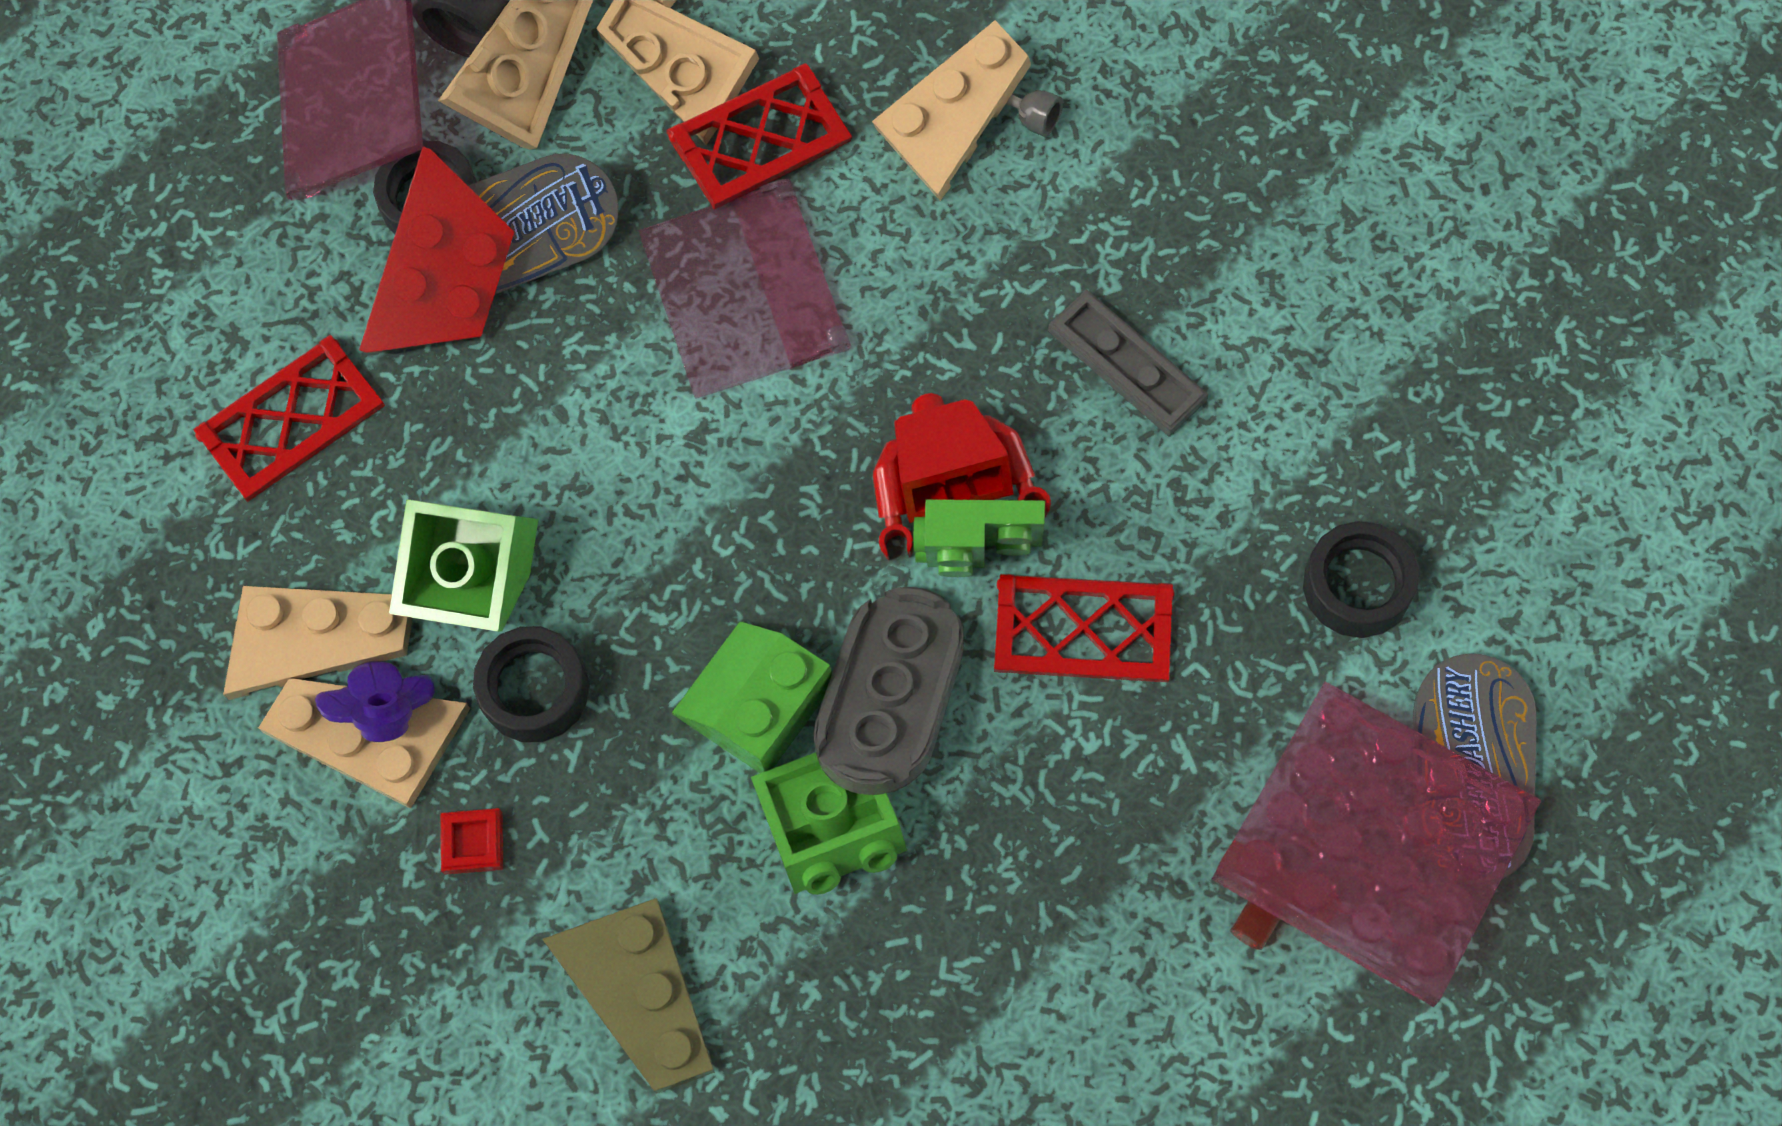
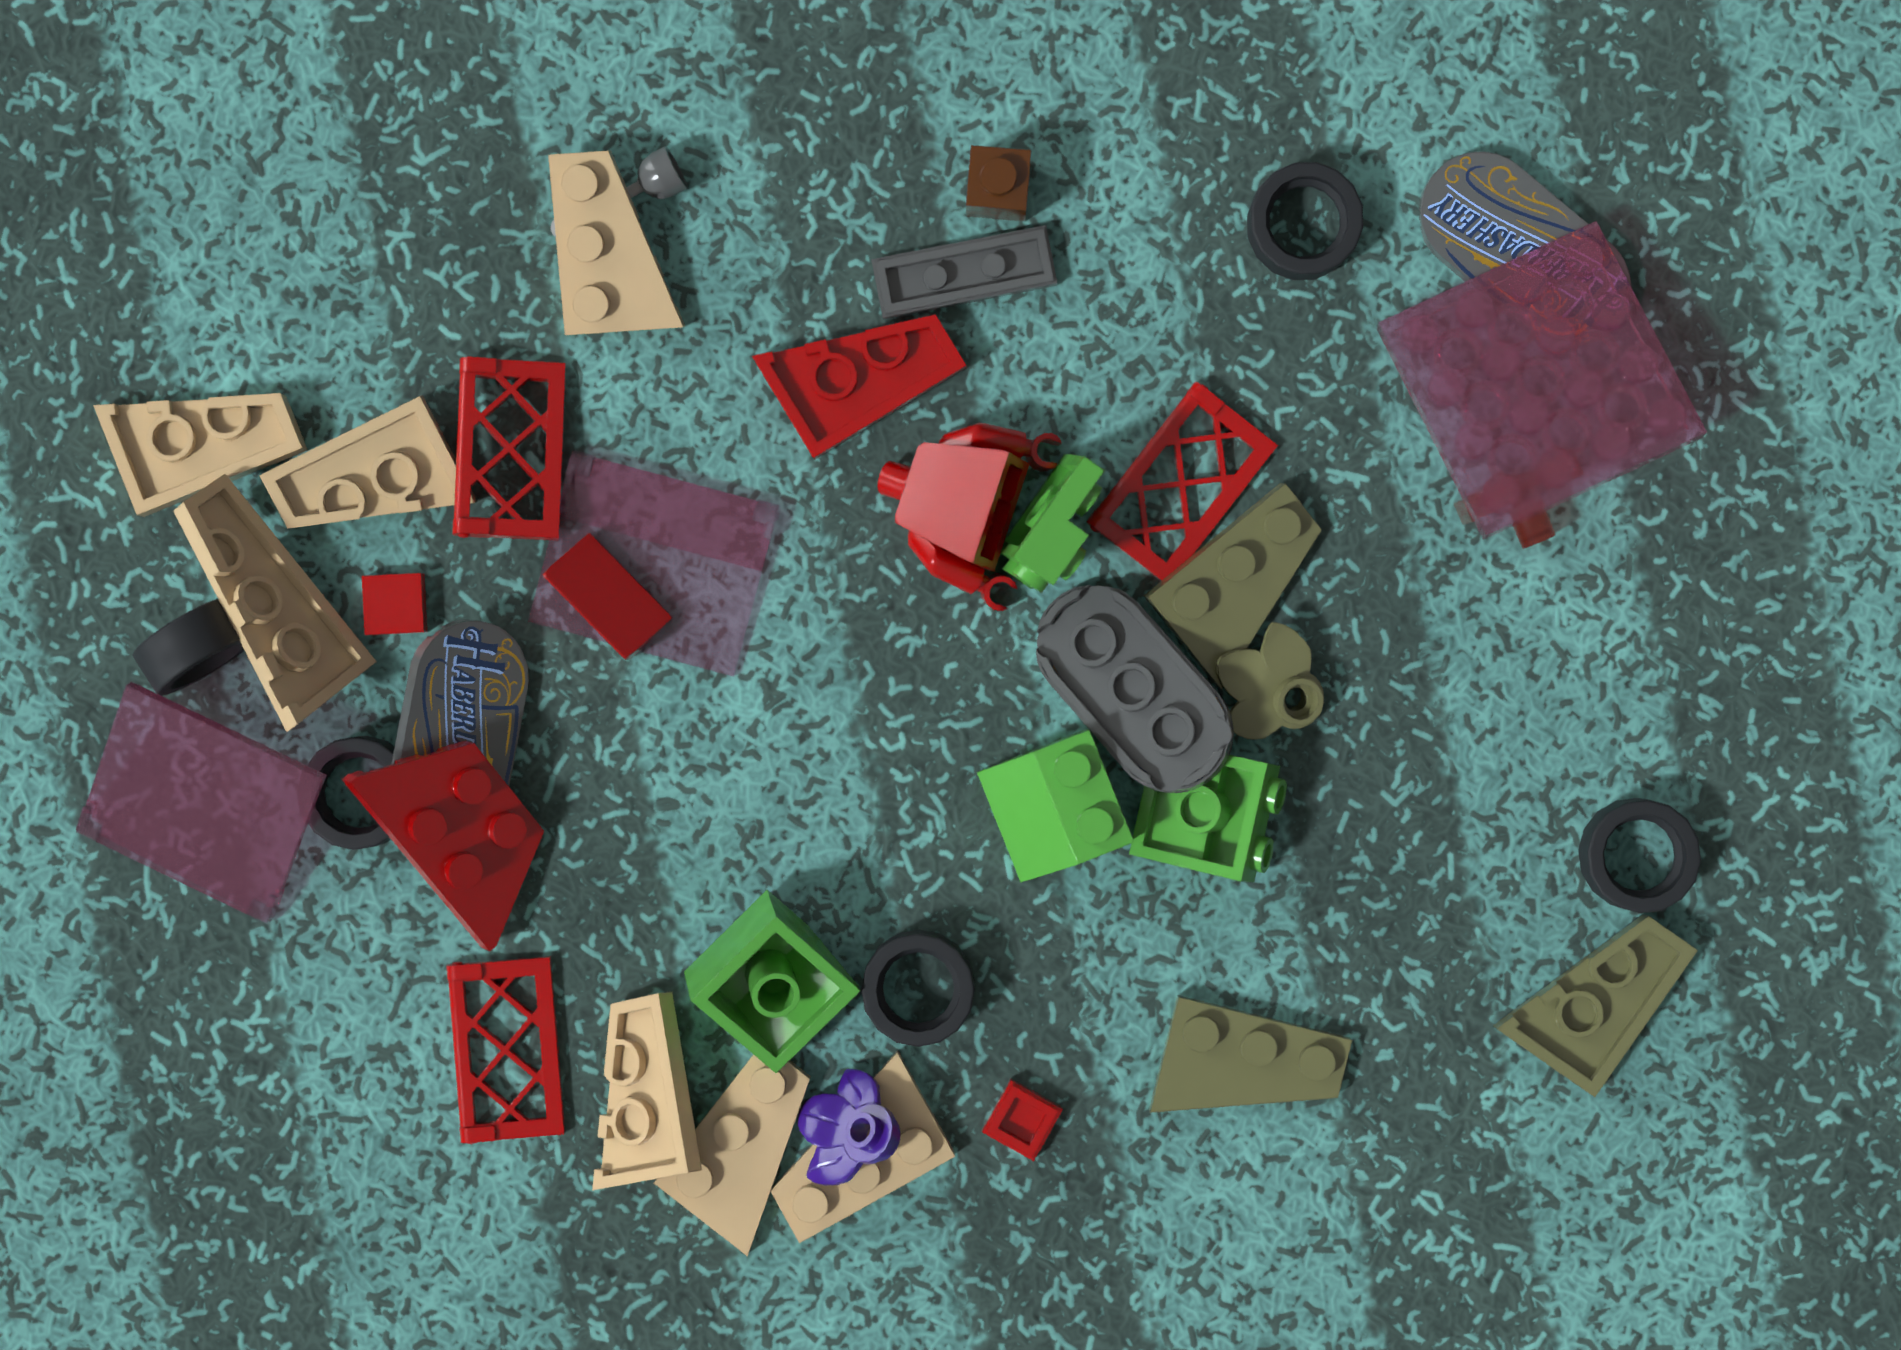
camera: 65 degrees left, 20 degrees up
(300, 545) = (649, 1105): none -> tan wing
(589, 133) = (394, 604): none -> red tile
(692, 265) = (607, 596): none -> red slope
(969, 789) = (1263, 679): none -> olive plate
(985, 336) = (858, 379): none -> red wing
(1033, 715) = (1235, 579): none -> olive wing
(1212, 334) = (998, 183): none -> reddish brown brick

